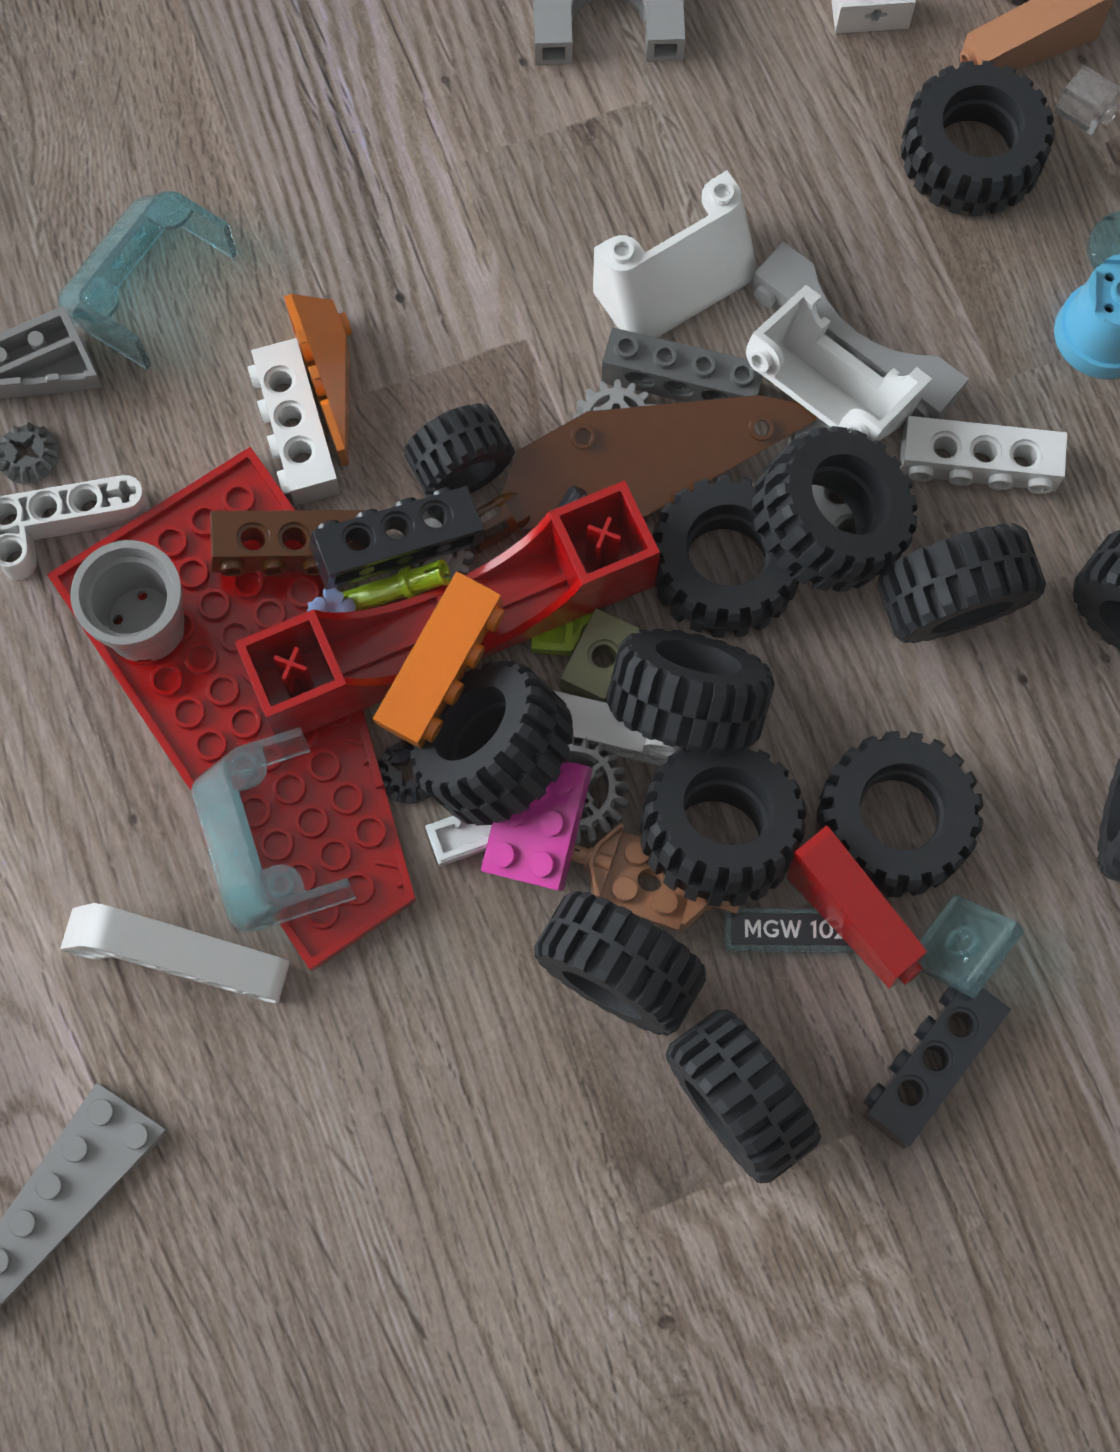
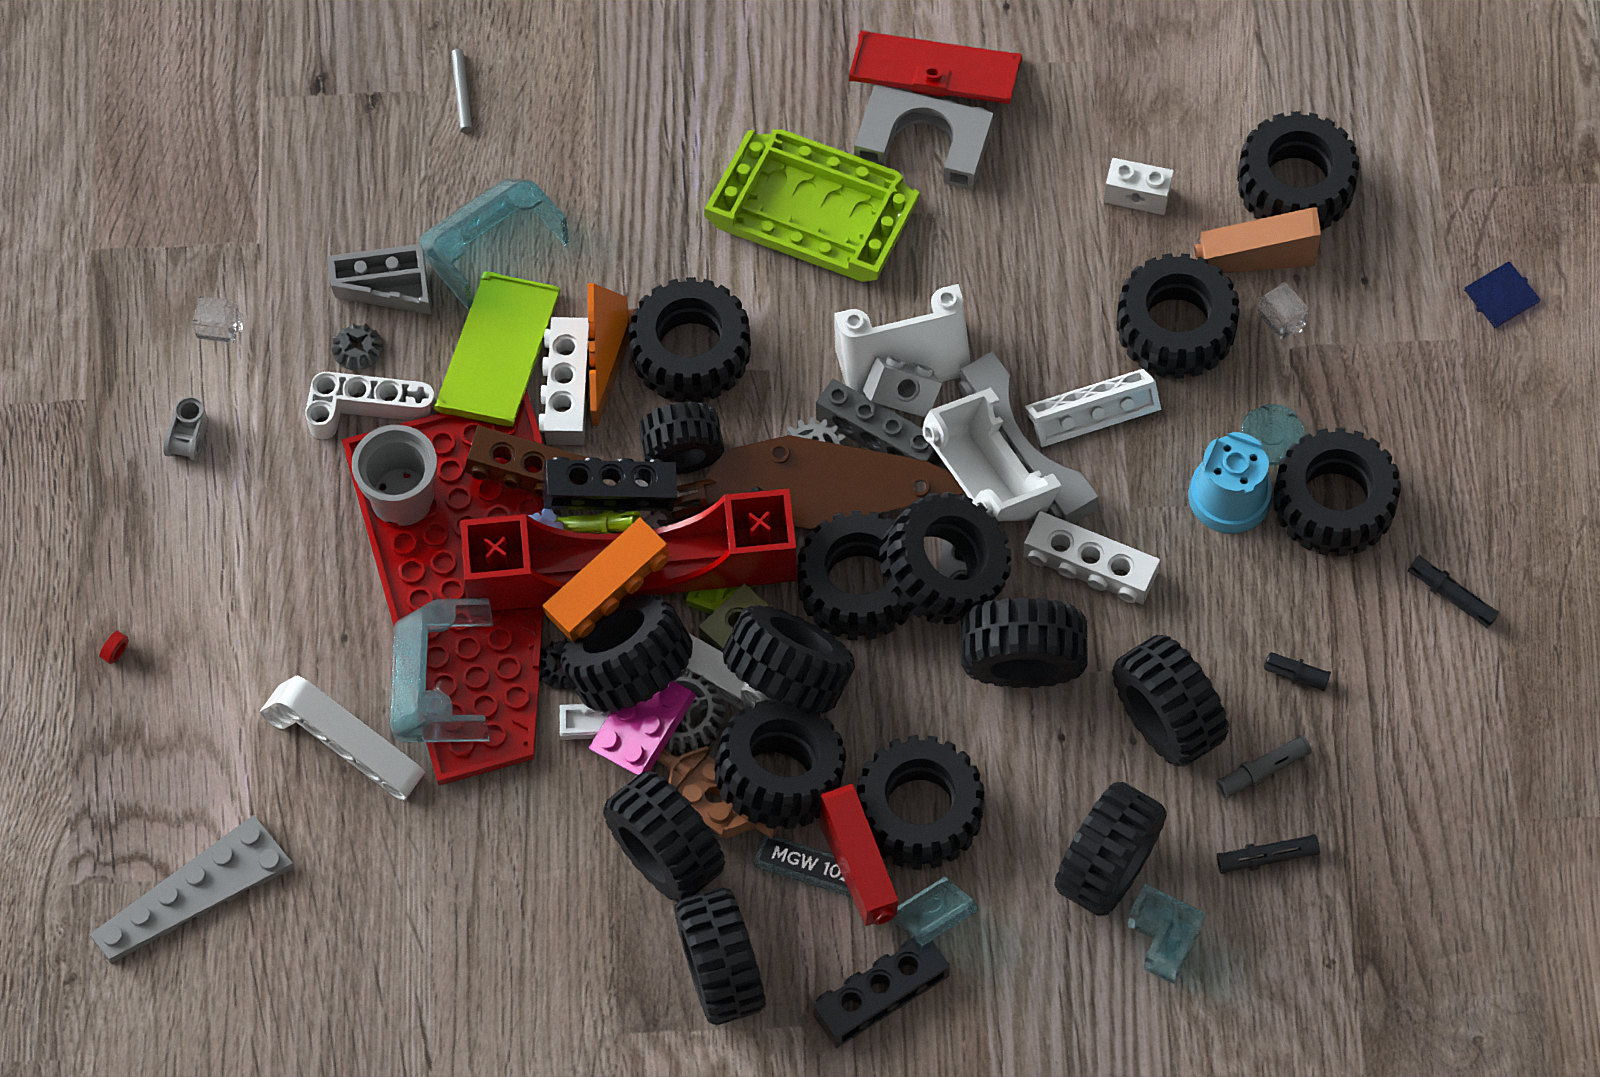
camera: 20 degrees right, 10 degrees down
(48, 109) = (461, 90): none -> light grey bar
(198, 408) = (497, 349): none -> lime door
(418, 284) = (686, 304): none -> black tyre
(508, 126) = (812, 203): none -> lime slope
(714, 321) = (915, 398): none -> light grey brick
(917, 275) = (1093, 407): none -> white fence

